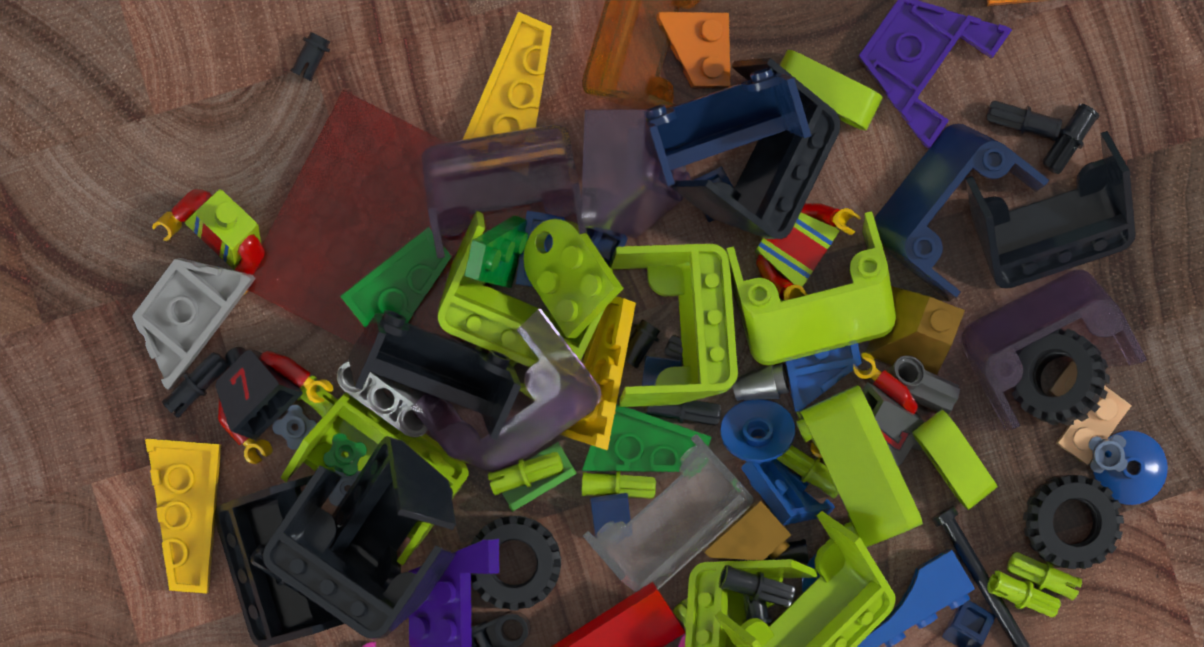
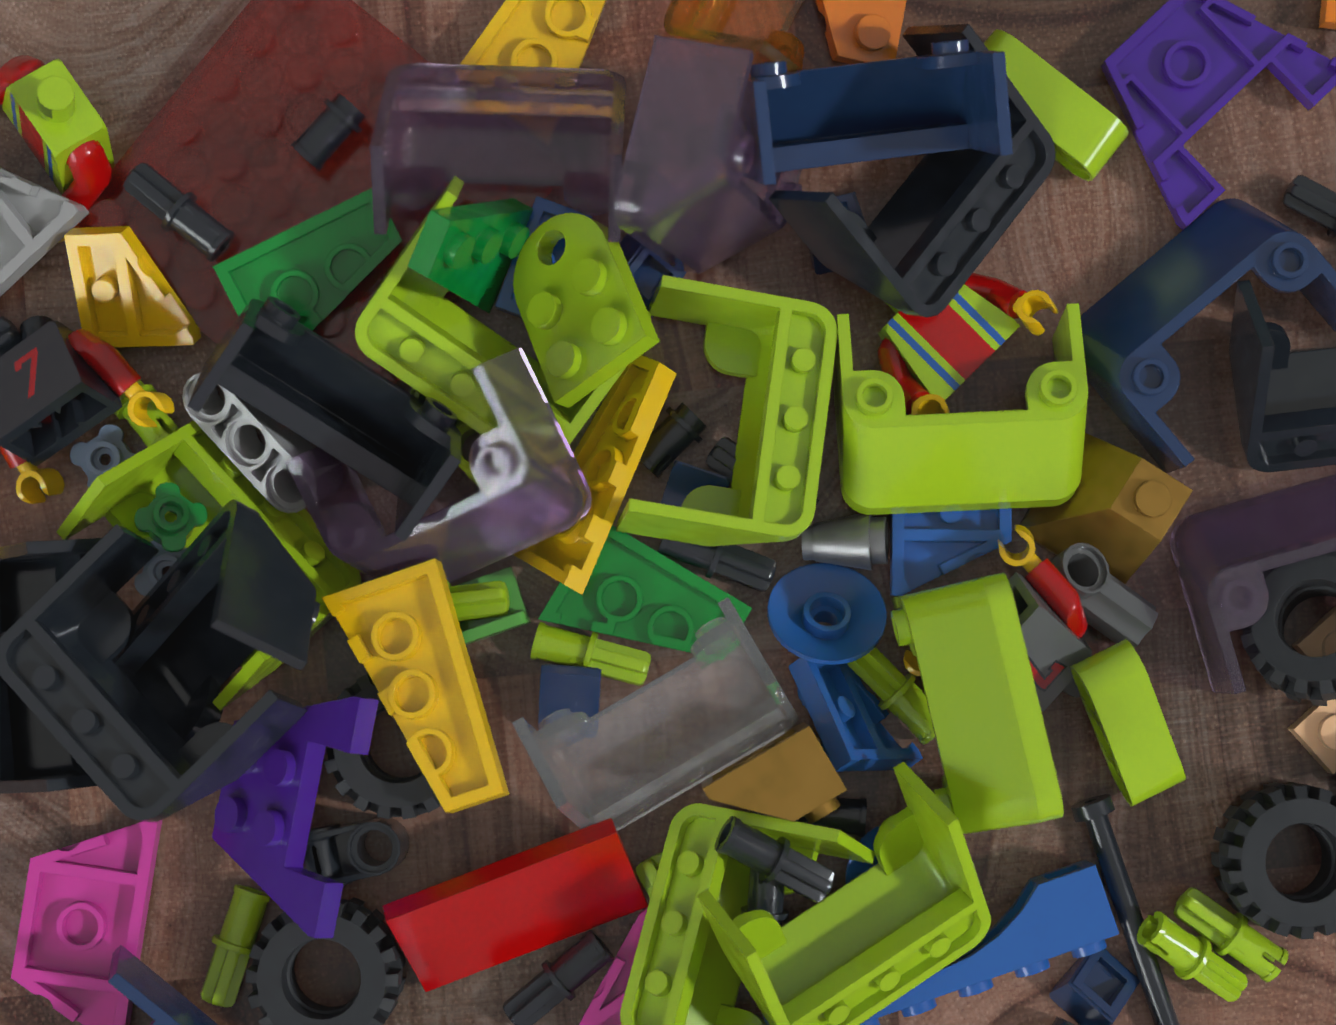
camera: 10 degrees right, 0 degrees up
(286, 321) = (124, 292): none -> yellow wing
(310, 266) = (178, 211): none -> black axle
(392, 197) = (328, 131): none -> black pin
(516, 510) = (419, 662): none -> yellow wing

